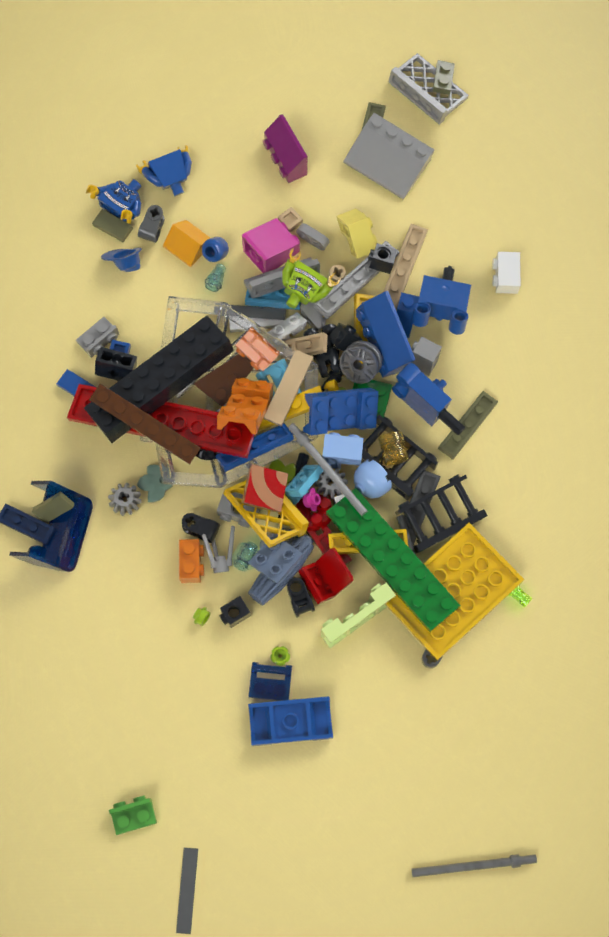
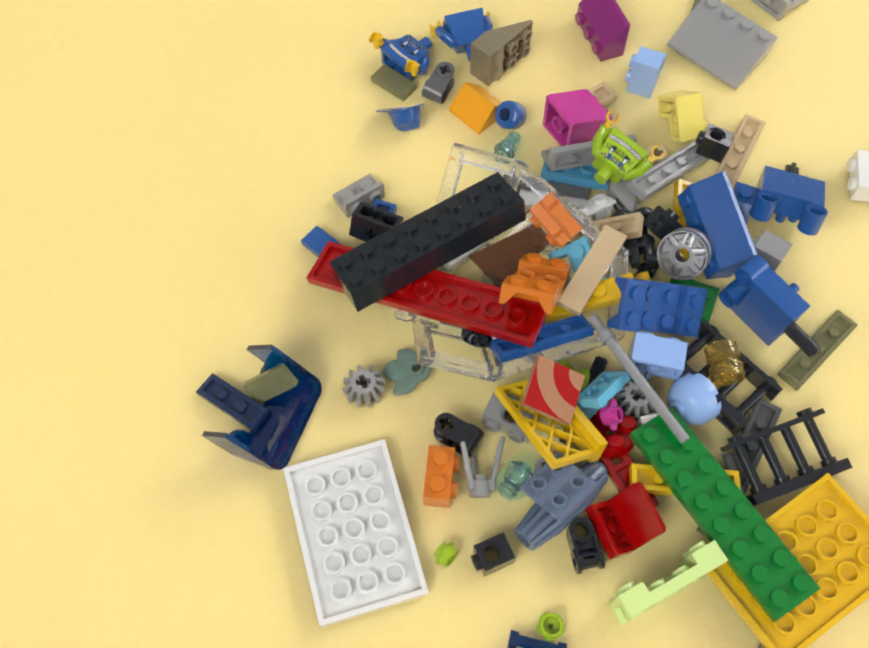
camera: 10 degrees right, 10 degrees down
(132, 608) = (354, 533): none -> white plate
(144, 424) = (404, 288): reddish brown plate -> none
(200, 188) = (499, 50): none -> dark tan slope
(312, 236) = (629, 115): light grey beam -> none
(325, 192) = (645, 71): none -> light blue brick

